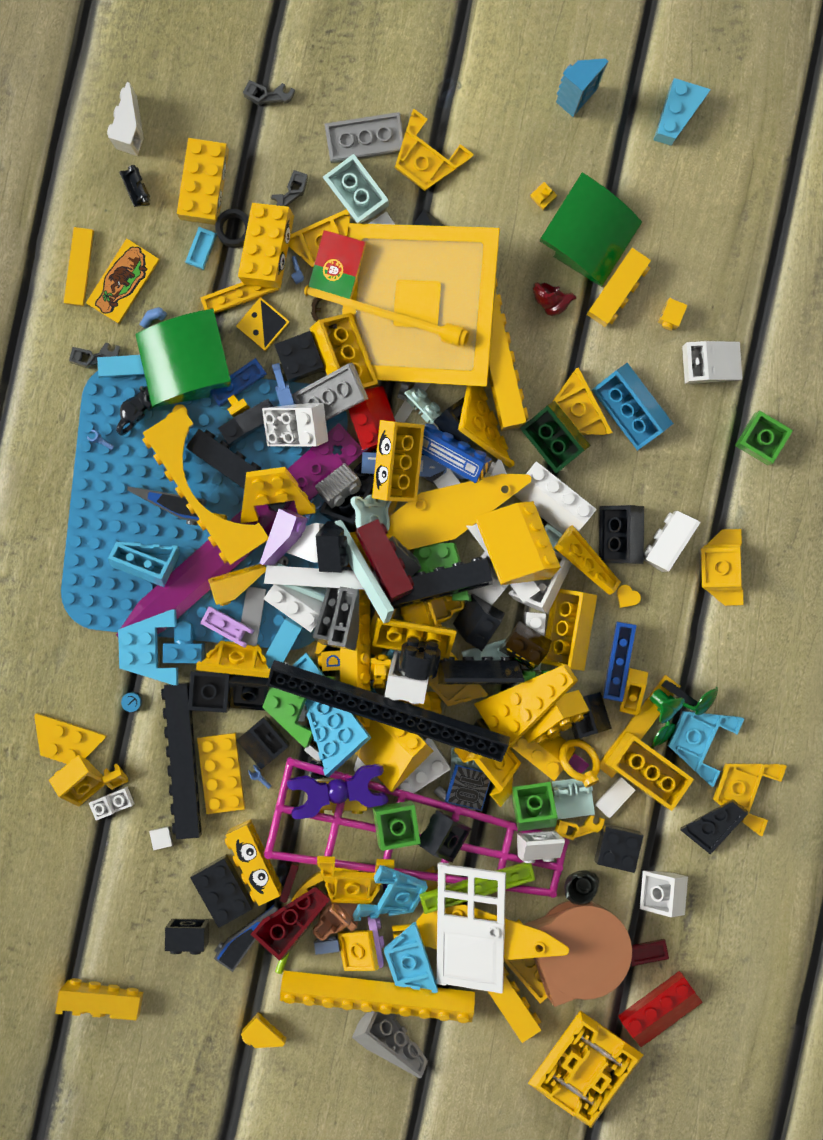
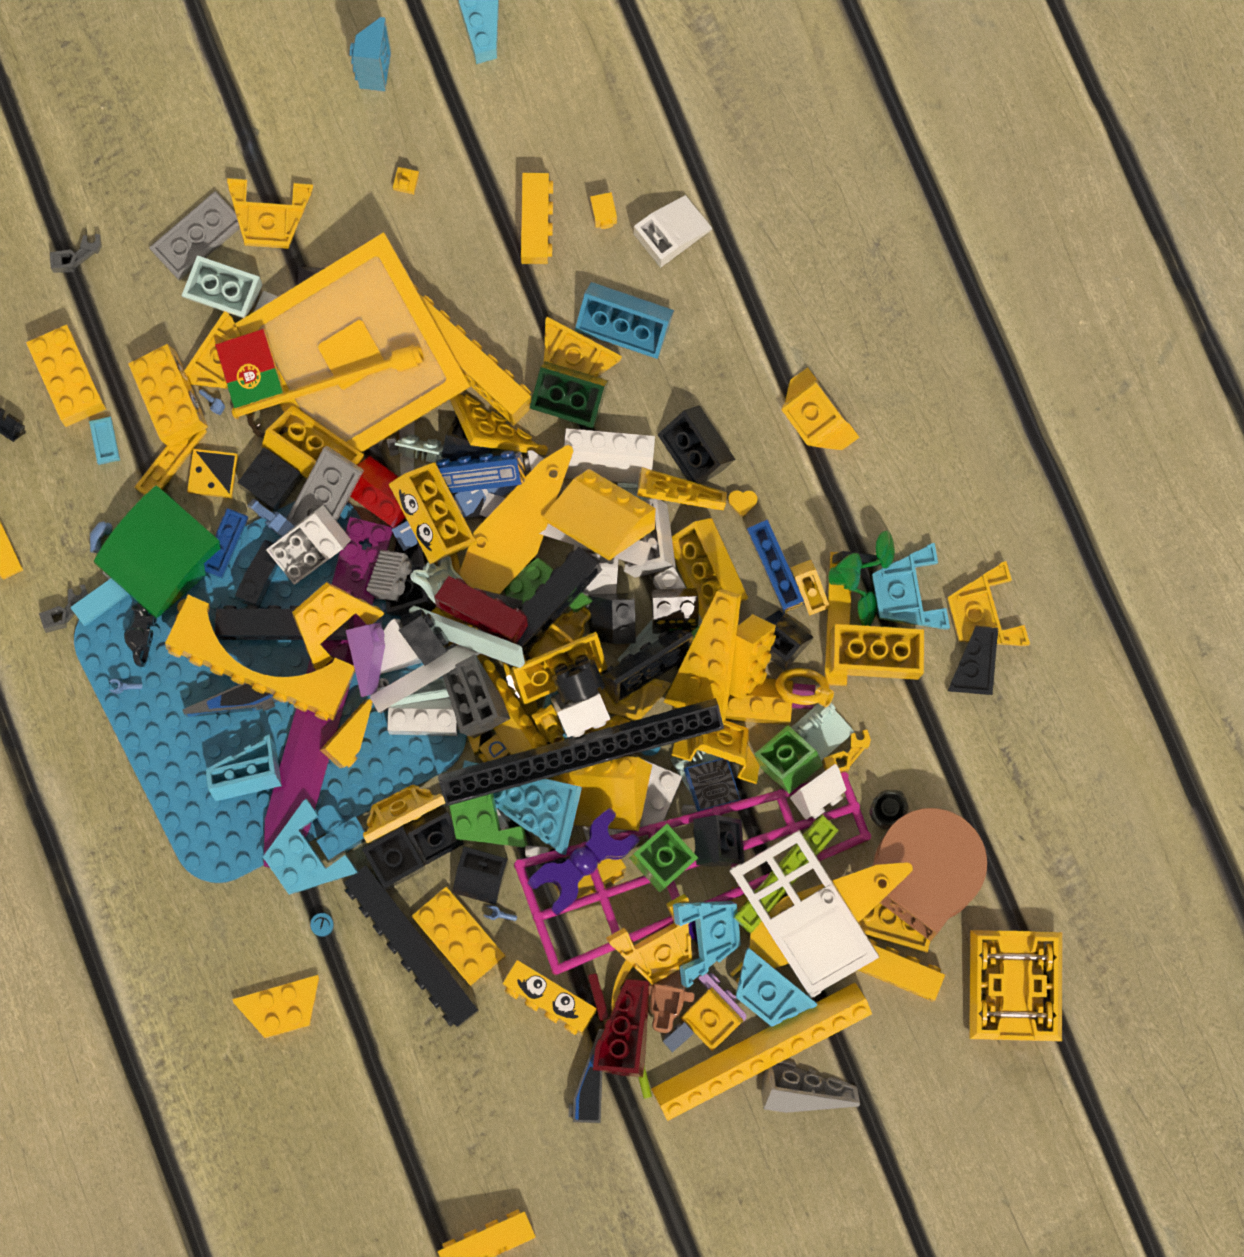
camera: 40 degrees left, 10 degrees down
(77, 781) = (319, 1035): yellow slope -> none
(111, 803) = (368, 1039): white slope -> none
(114, 778) = (355, 1009): yellow tile -> none
(122, 281) = (47, 521): tile -> none
(161, 838) = (440, 1041): white tile -> none
(187, 936) = (530, 1116): black brick -> none
(222, 891) = (537, 1050): black brick -> none
(226, 625) = (367, 783): lavender hinge -> none
(233, 243) = (115, 386): black tyre -> none
(237, 406) = (239, 564): yellow tile -> none
(253, 613) = (387, 758): light grey tile -> none
(262, 1033) = (671, 1169): yellow slope -> none
(283, 642) = (434, 761): medium azure tile -> none
(297, 178) = (157, 314): dark grey piece -> none
(552, 298) = (478, 270): dark red hair -> none
(591, 230) = (473, 182): green slope -> none
(615, 797) = (862, 702): white tile -> none
(618, 848) = (899, 747): black brick -> none
(649, 952) = (1000, 831): dark red tile -> none
(659, 1009) = (1050, 879): red slope -> none
(663, 893) = (973, 762): white slope -> none
(670, 541) = (746, 421): white slope -> none
(763, 438) = (769, 268): bright green brick -> none

